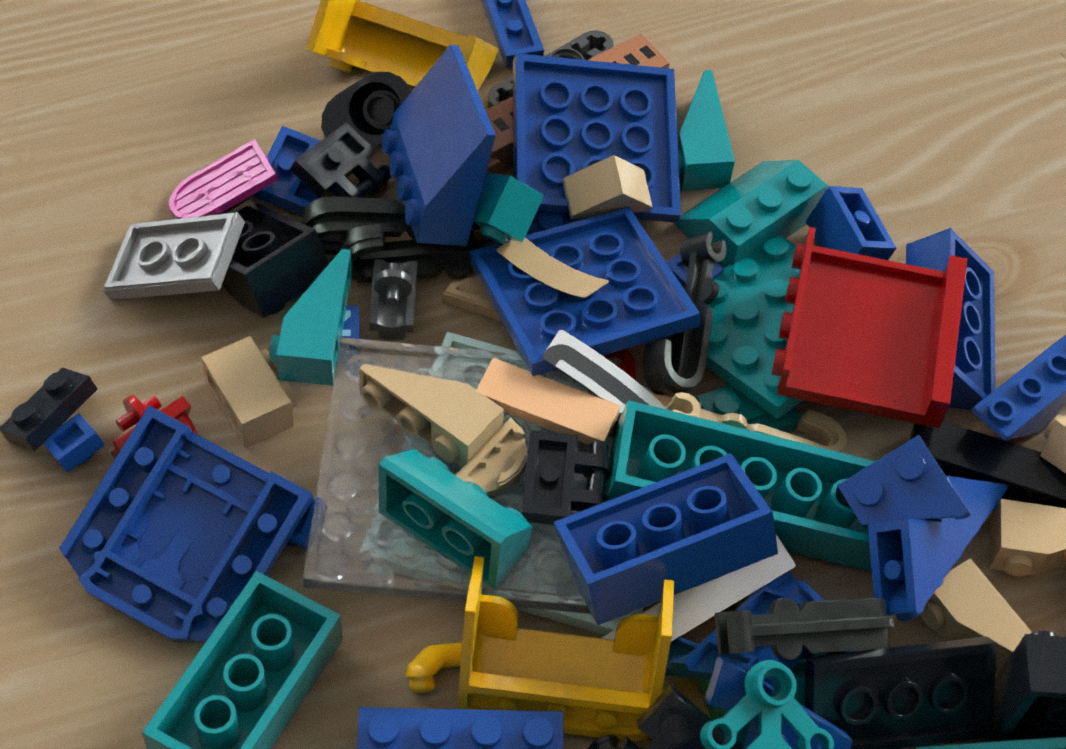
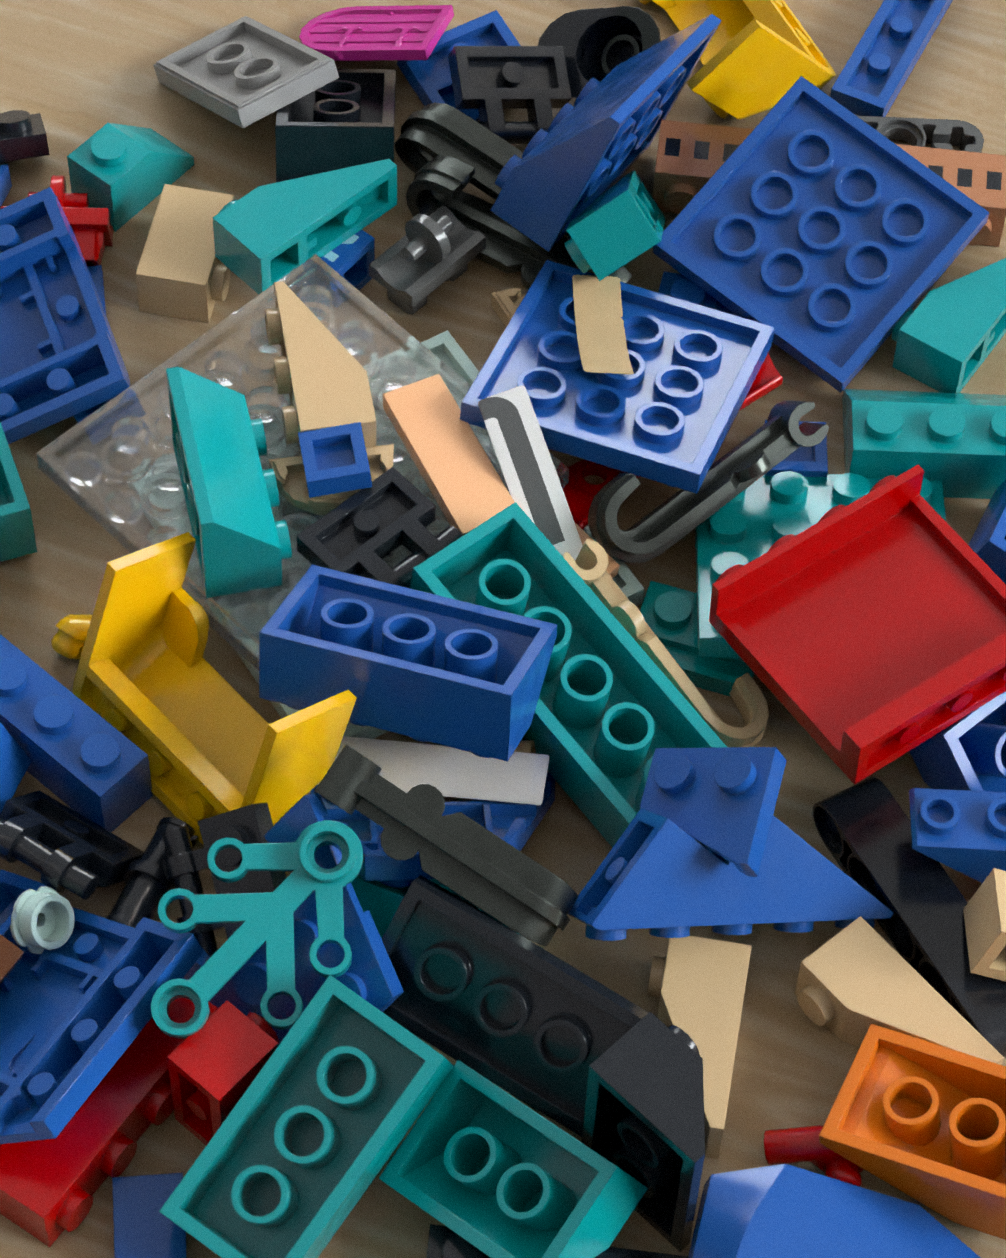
camera: 45 degrees right, 0 degrees up
(156, 366) = (125, 169): none -> teal slope
(501, 449) = (335, 459): none -> blue plate
(605, 188) = (774, 291): tan slope -> none

